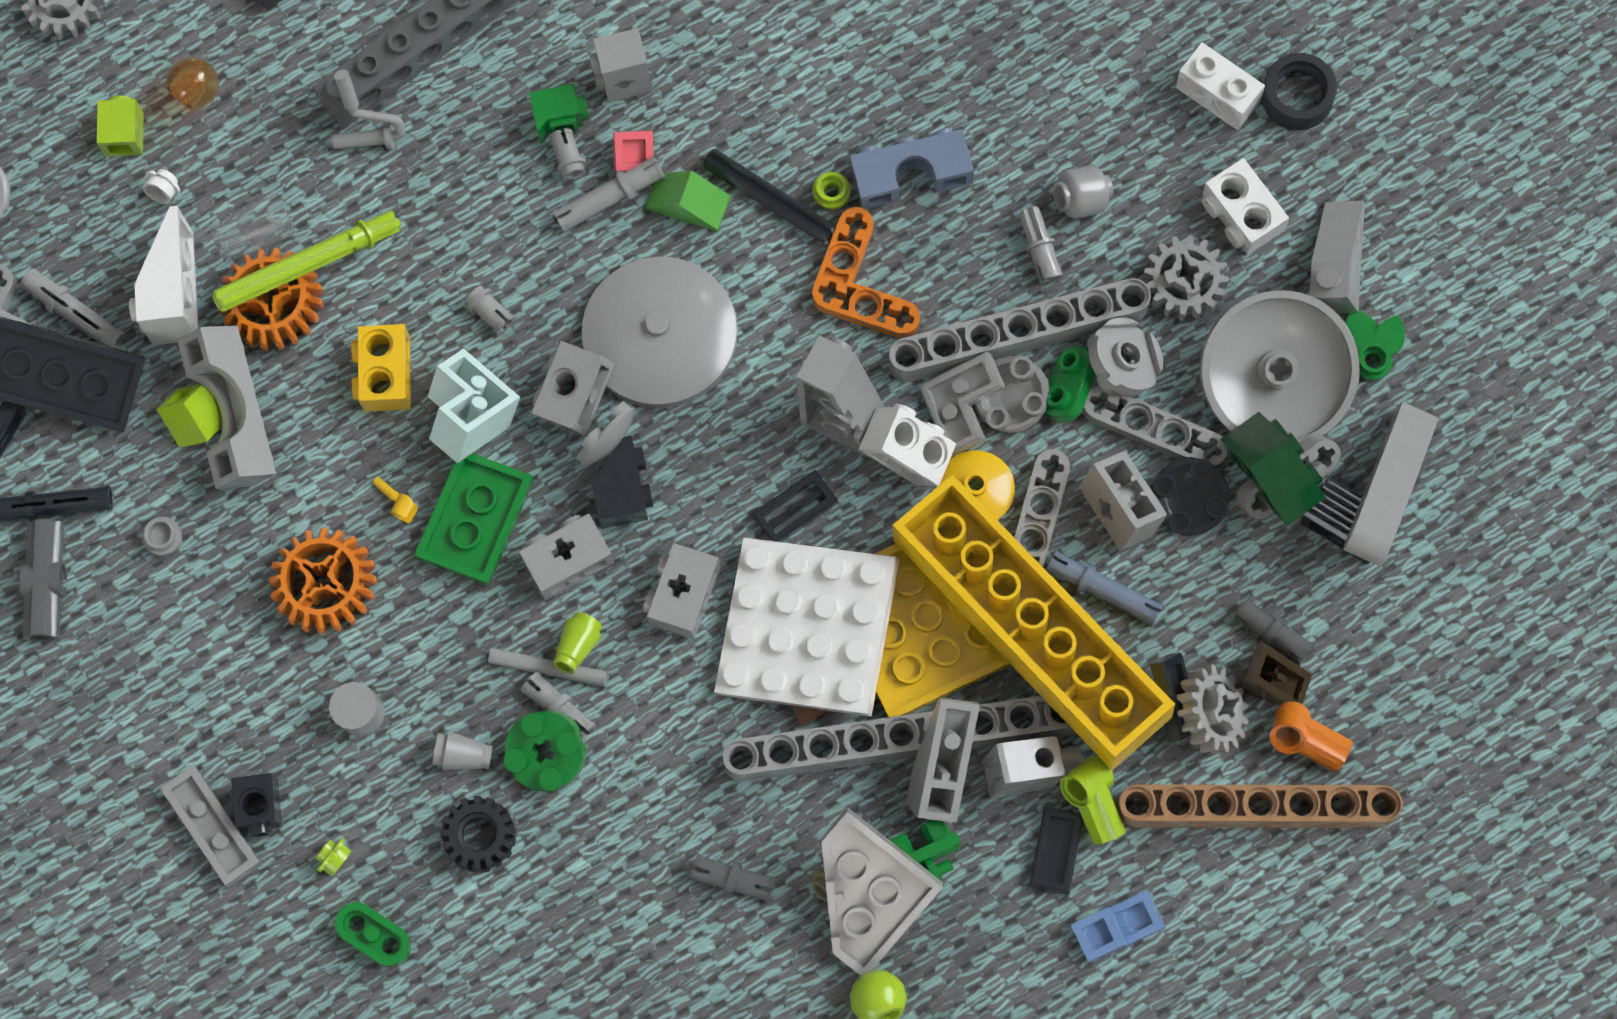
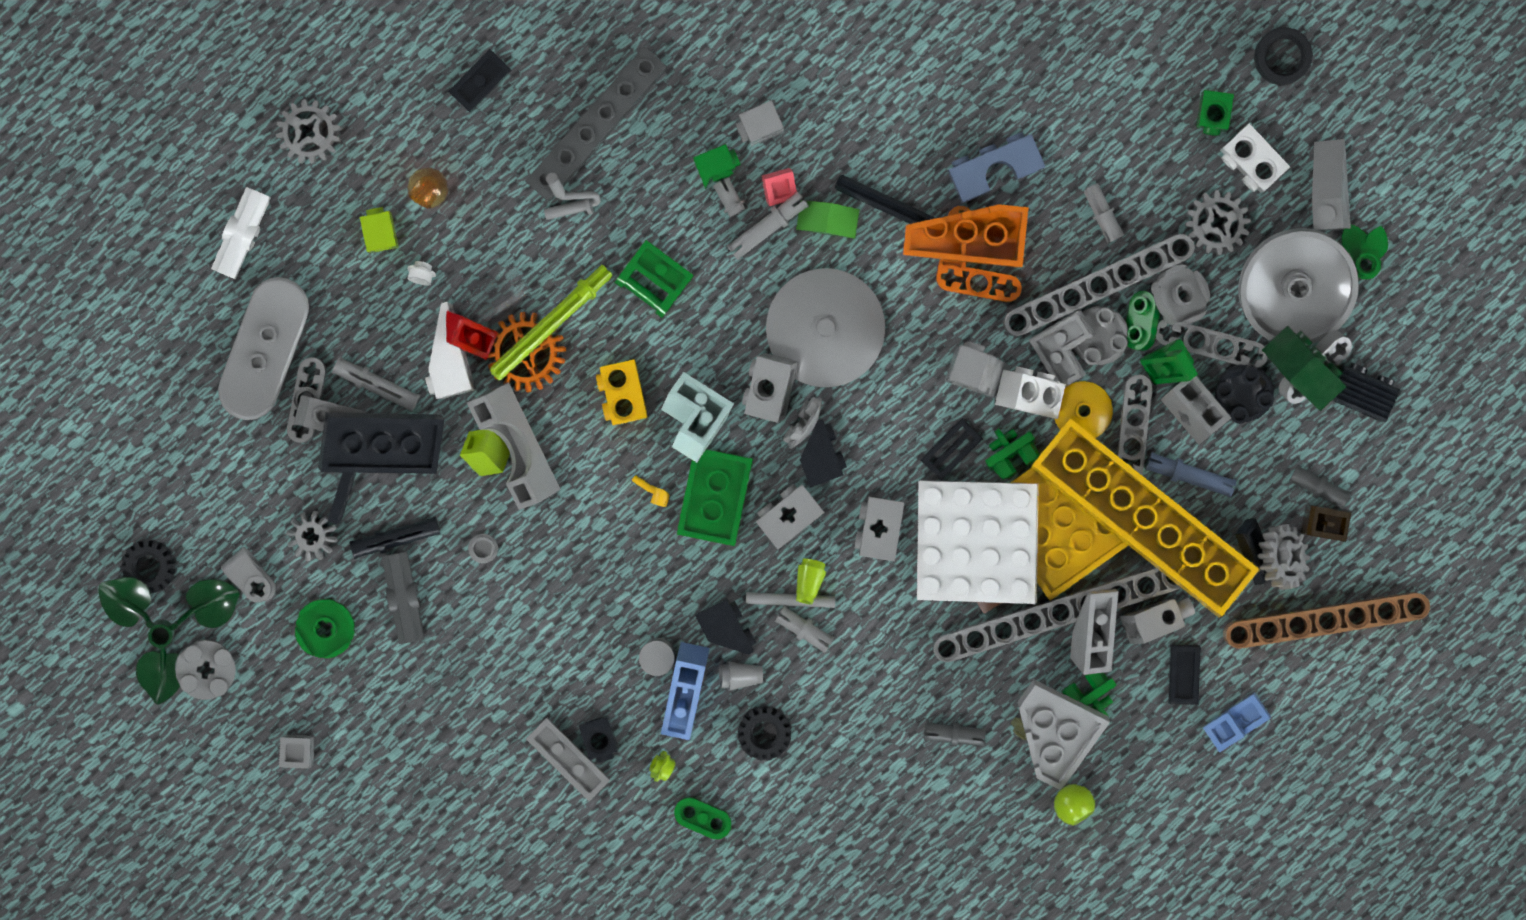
camera: 15 degrees left, 15 degrees up
(197, 252) = (469, 335): none -> red slope
(314, 594) = (600, 588): orange gear -> none
(383, 759) = (685, 690): none -> medium blue slope
(451, 684) = (723, 628): none -> black slope
(462, 228) = (658, 269): none -> green plate
(489, 309) = (693, 332): light grey pin -> none
(524, 760) = (807, 680): green plate -> none
(831, 179) = (937, 203): lime plate -> none
(867, 517) = (1000, 461): none -> green hips
(873, 243) = (977, 236): none -> orange wedge
(1082, 191) = (1129, 166): light grey head -> none
(1089, 790) = (1203, 632): lime piece -> none
(1095, 440) = (1169, 364): none -> green slope
(1205, 129) = (1224, 103): none -> green brick
(1220, 86) = (1222, 63): white brick -> none
(1308, 737) = (1347, 562): orange piece -> none
(1390, 484) = (1392, 366): light grey beam -> none

